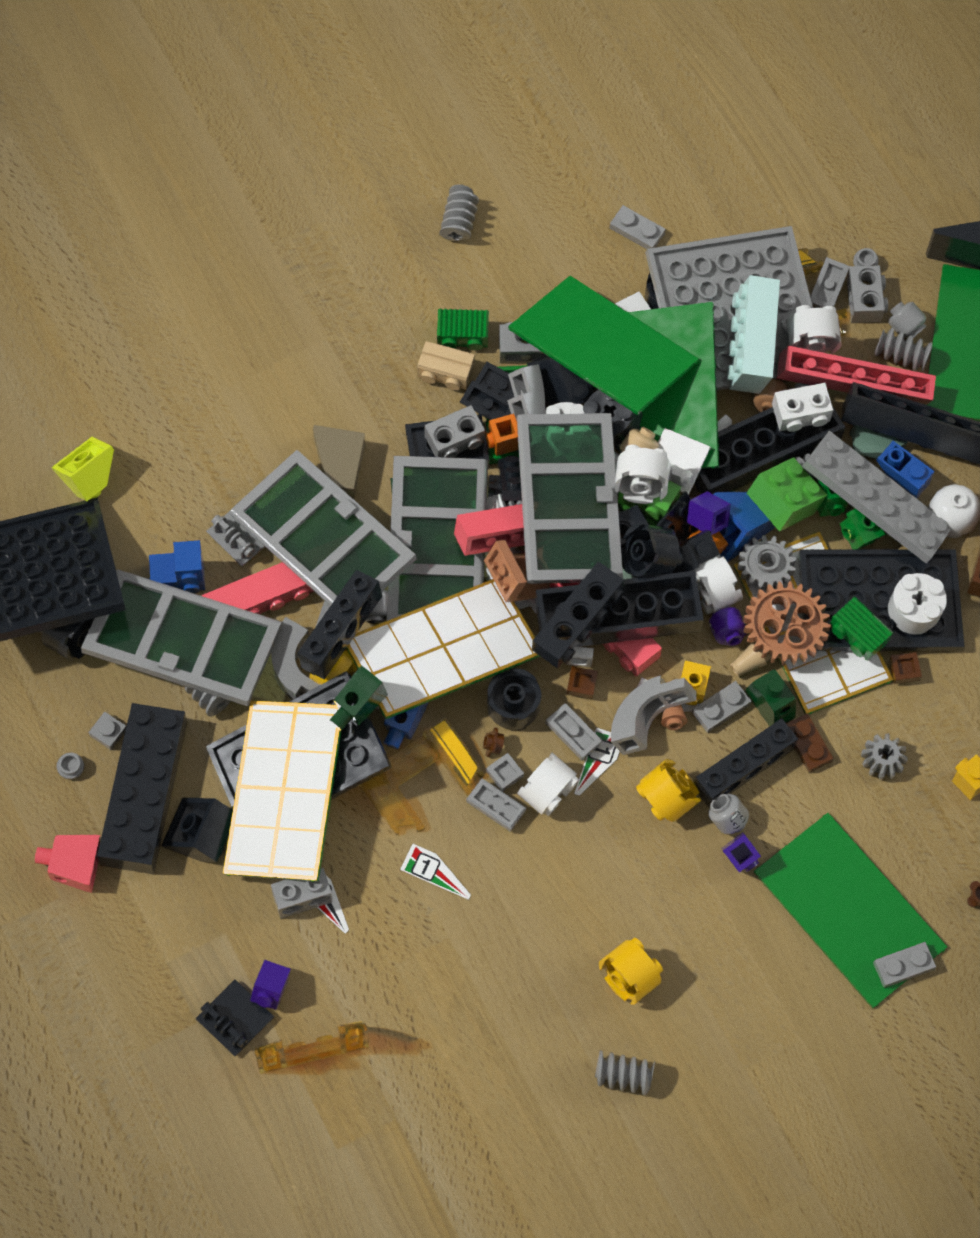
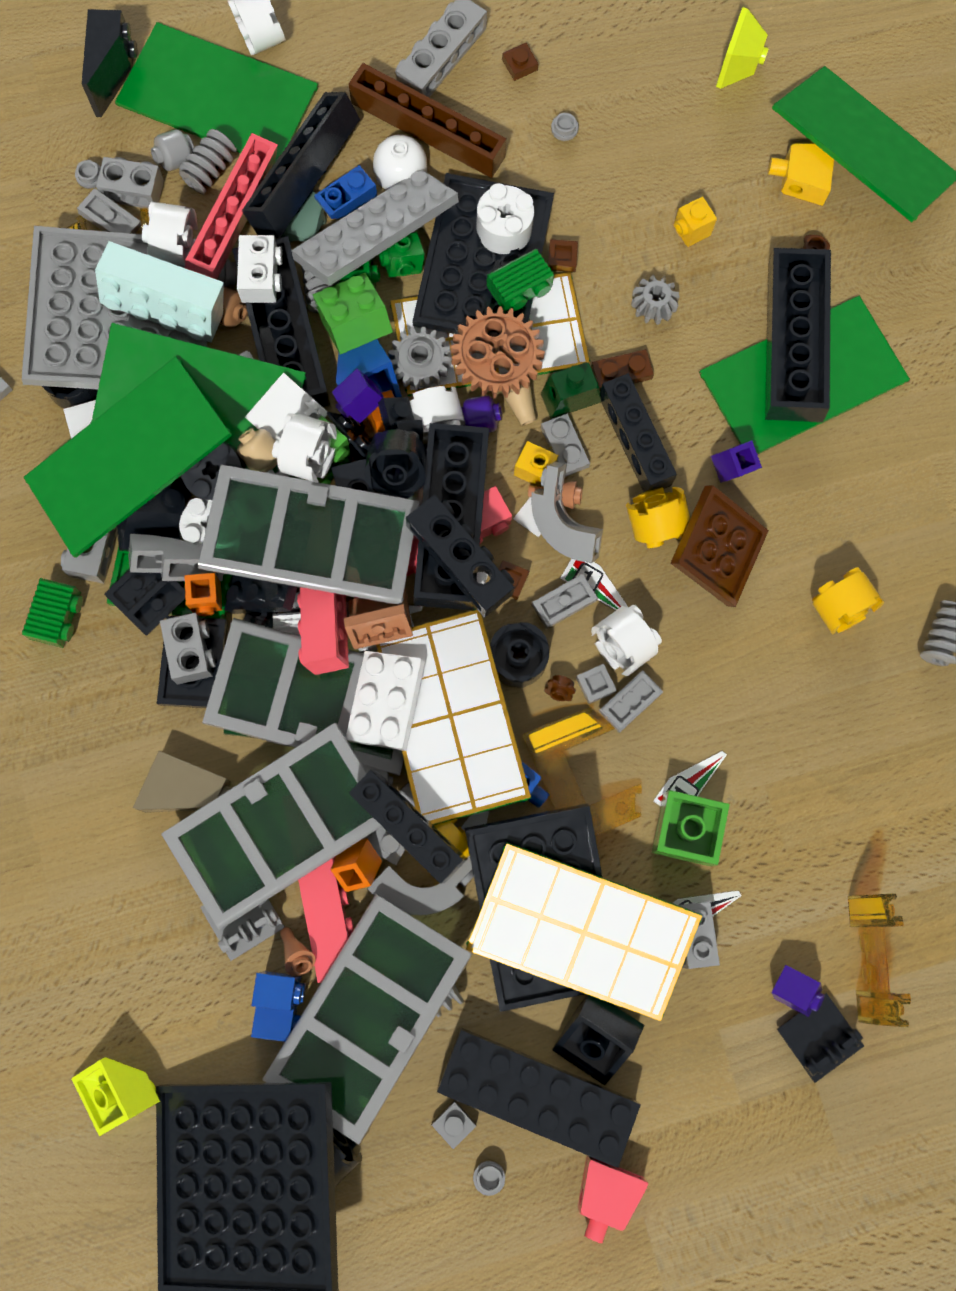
camera: 80 degrees left, 10 degrees up
(218, 575) = (297, 957): none -> nougat cone
(303, 605) = (356, 866): none -> orange brick
(363, 689) = (503, 814): dark green torso -> none
(392, 869) = (690, 828): none -> bright green brick
(445, 366) = (94, 642): tan brick -> none
(445, 592) = (385, 700): none -> white plate
(654, 849) = (719, 546): none -> reddish brown plate
(728, 813) = (691, 464): light grey head -> none
(882, 886) = (798, 335): none -> black brick
(904, 964) = (874, 338): light grey plate -> none

